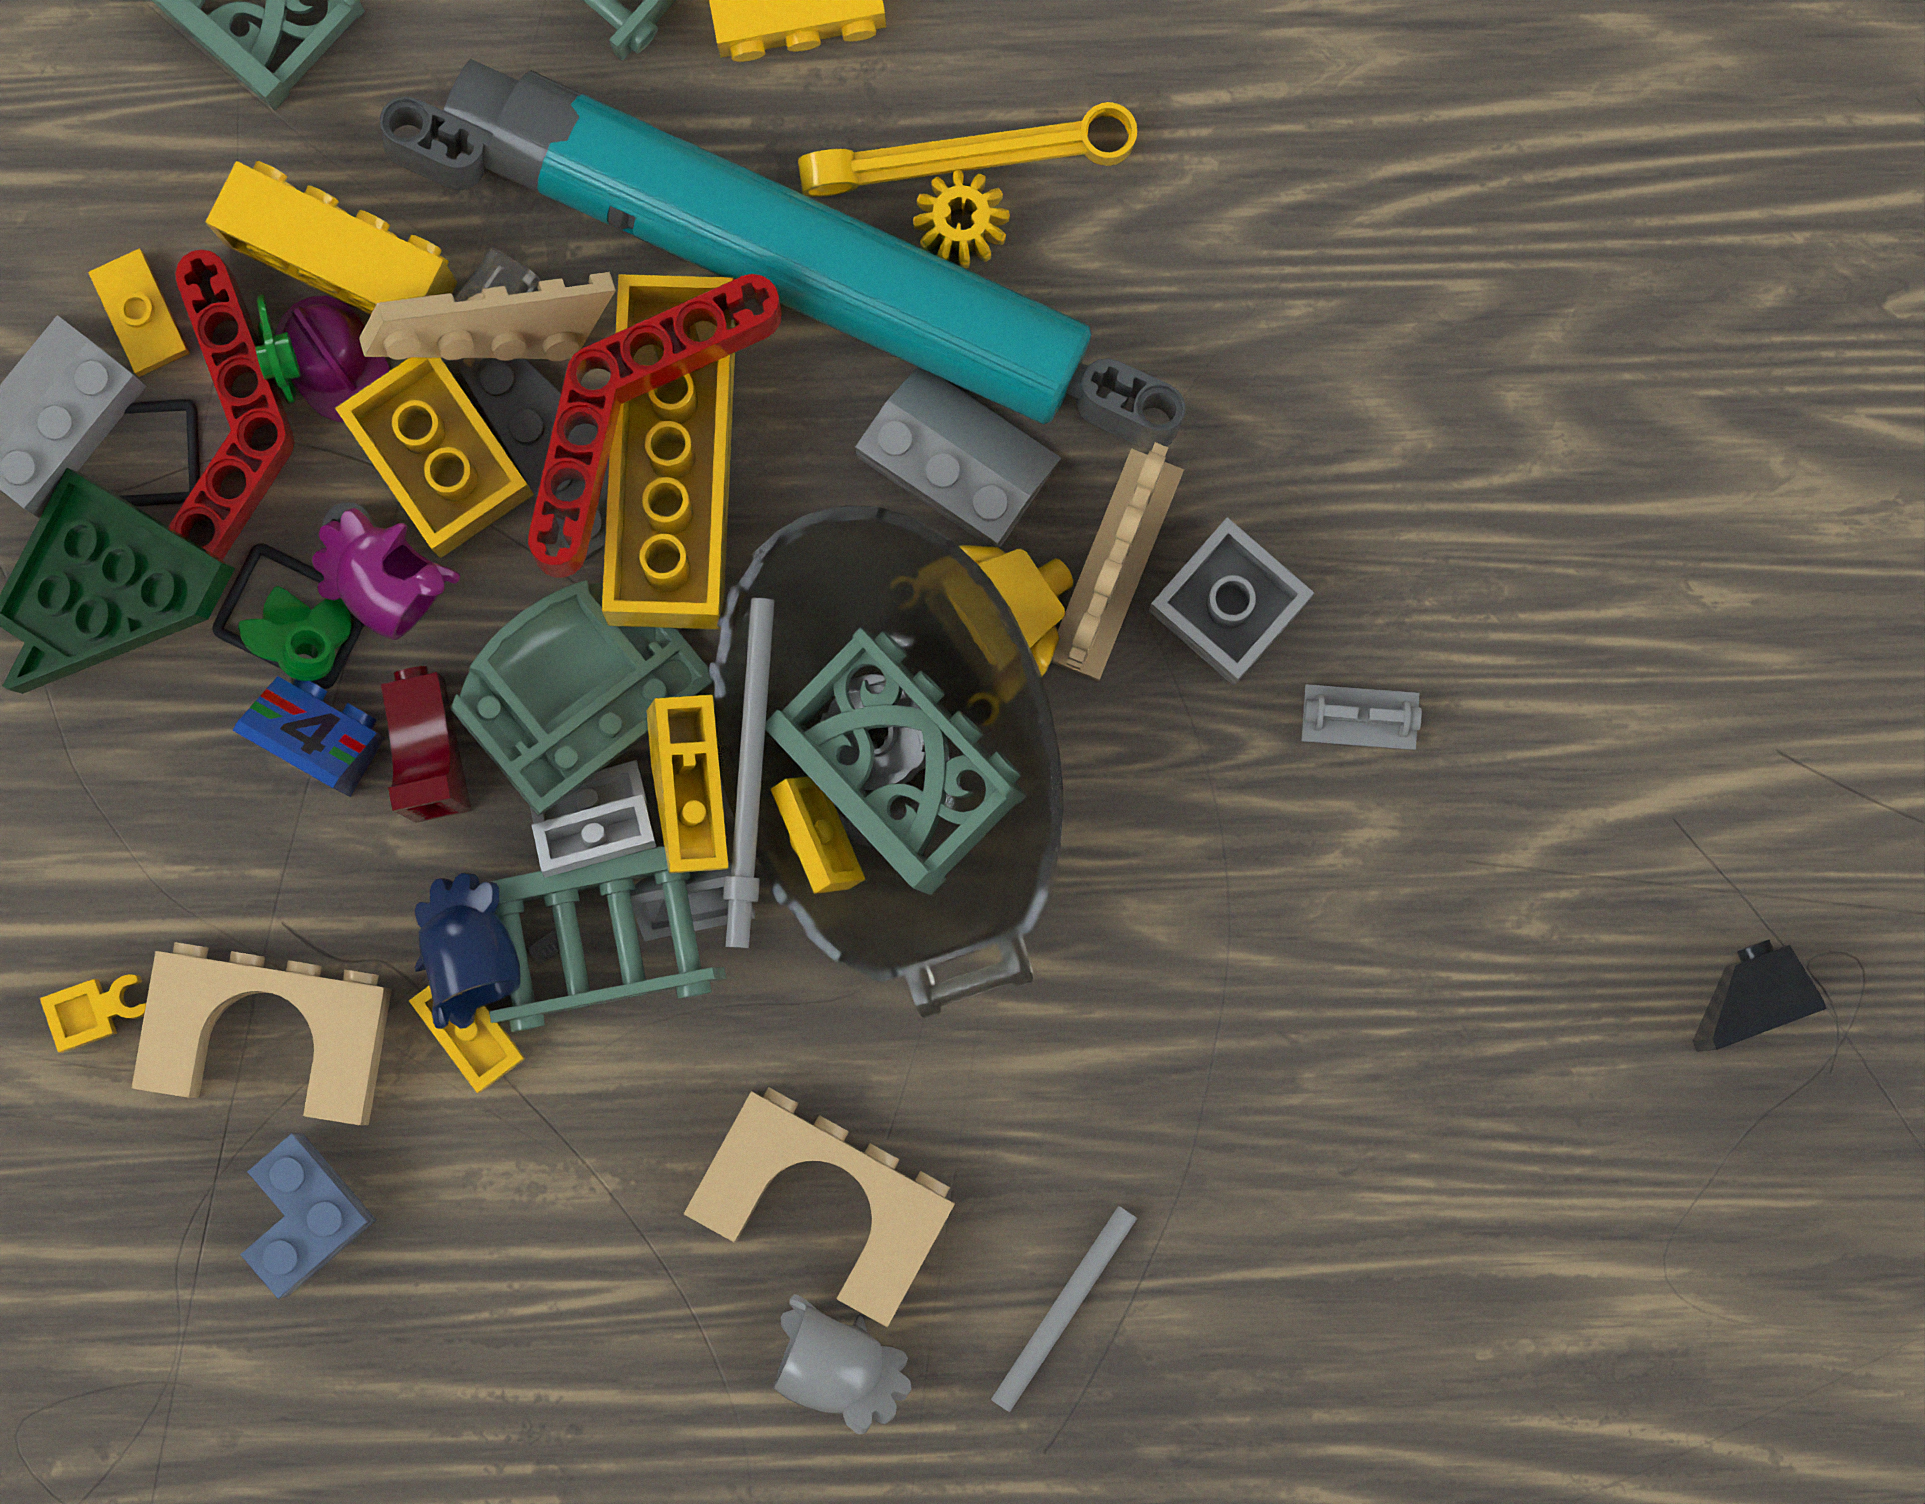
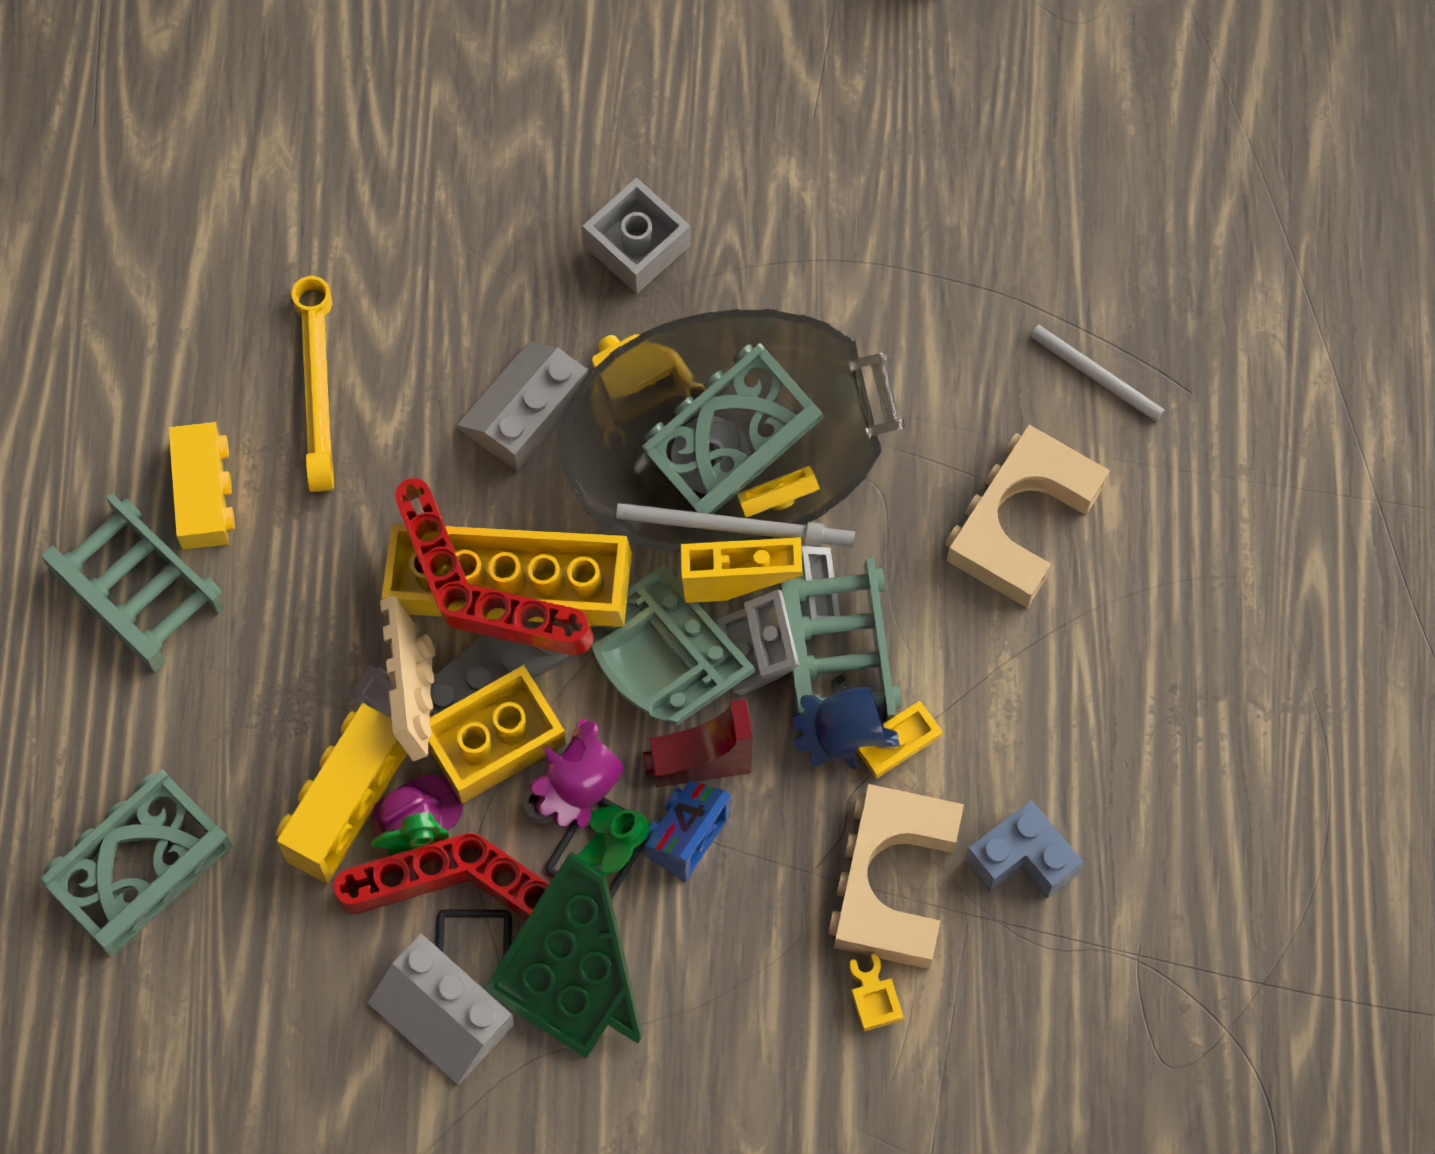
camera: 90 degrees left, 15 degrees down
(139, 312) = (369, 944): yellow plate -> none
(752, 225) = (362, 504): teal piece -> none
(839, 1368) = (1140, 504): light grey piece -> none
(983, 218) = (353, 401): yellow gear -> none
(1116, 562) = (593, 301): tan fence -> none
(1361, 717) = (716, 169): light grey hinge -> none

